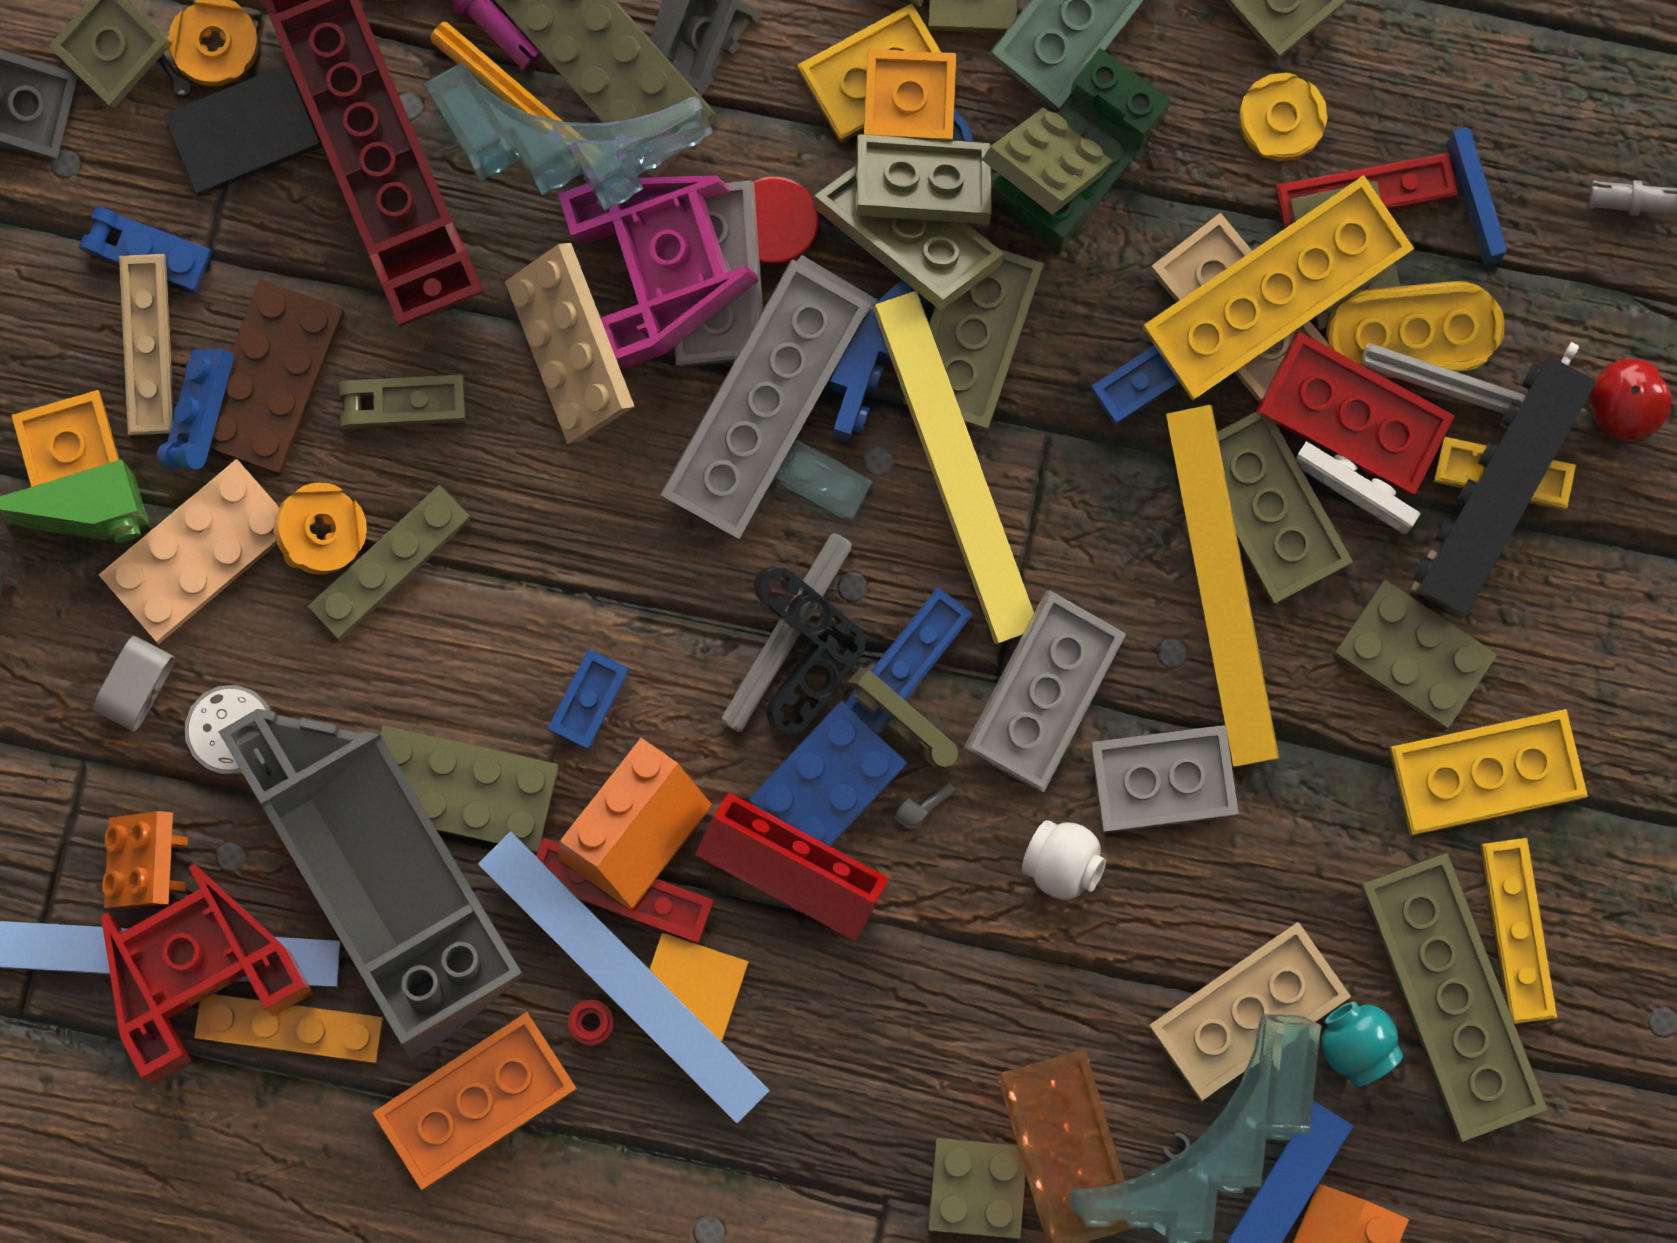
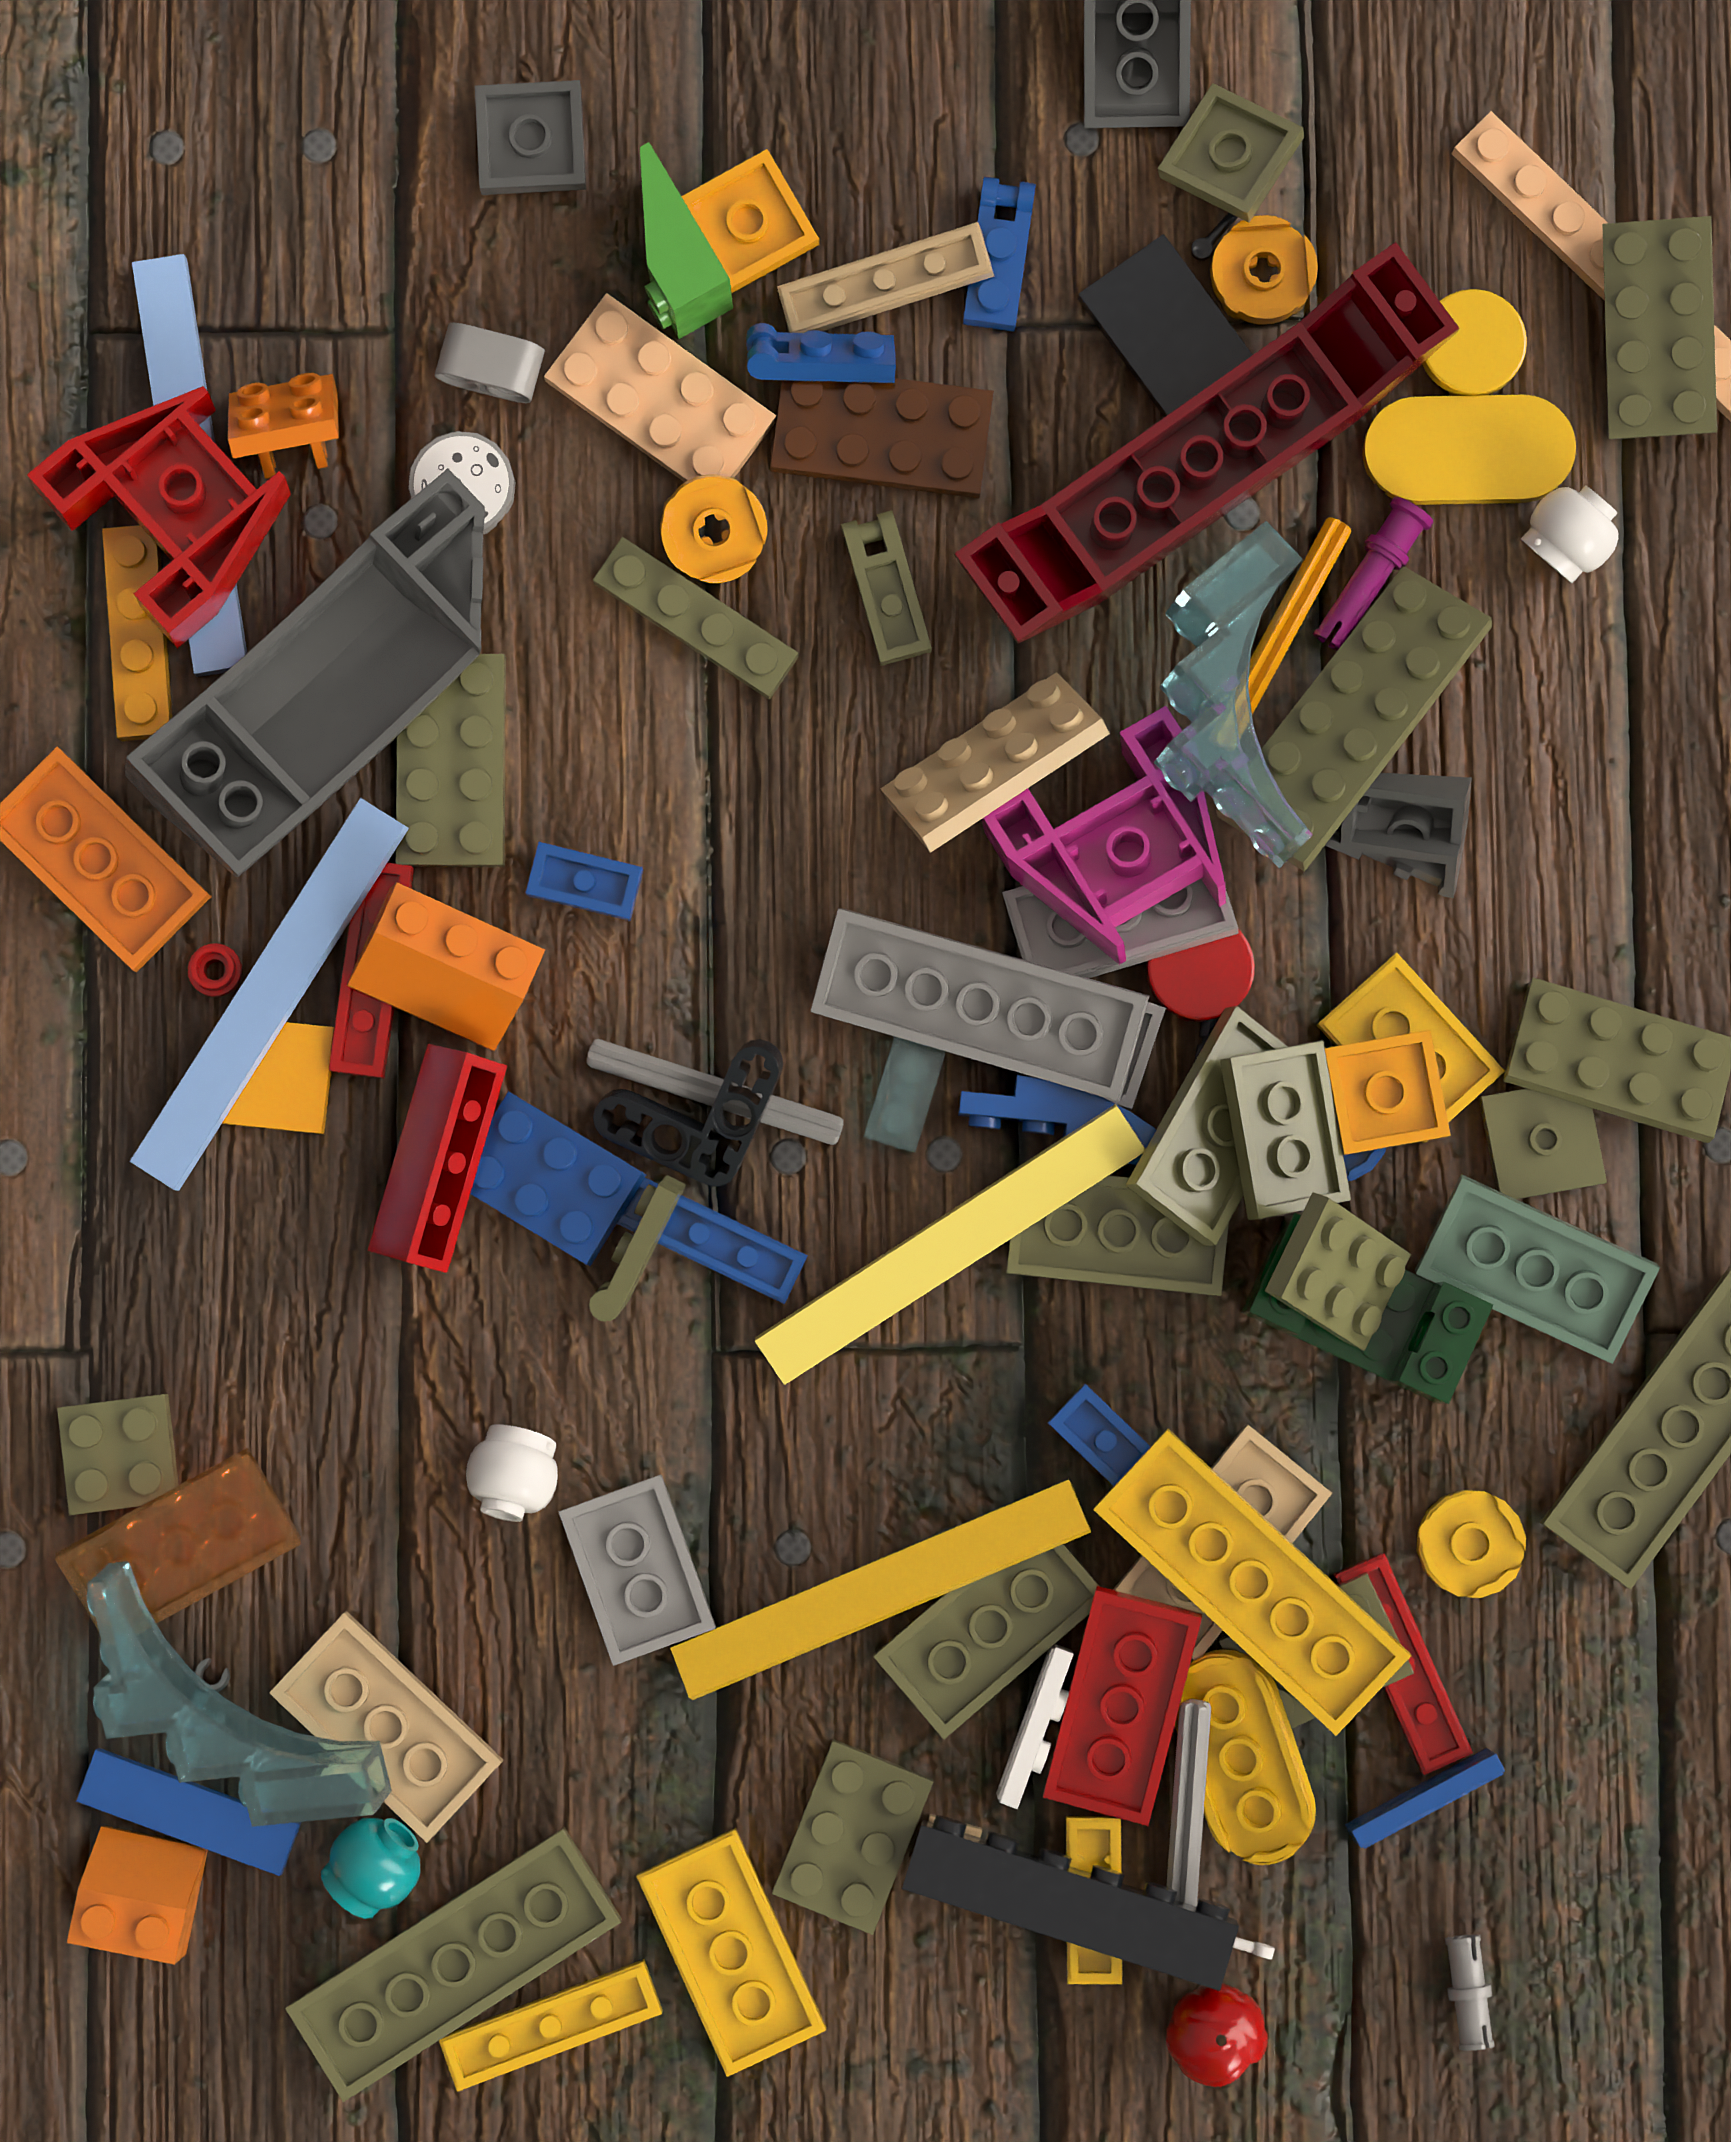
camera: 80 degrees right, 5 degrees up
(912, 814) = (533, 1285): dark grey hand -> none
(1044, 691) = (710, 1407): light grey tile -> none

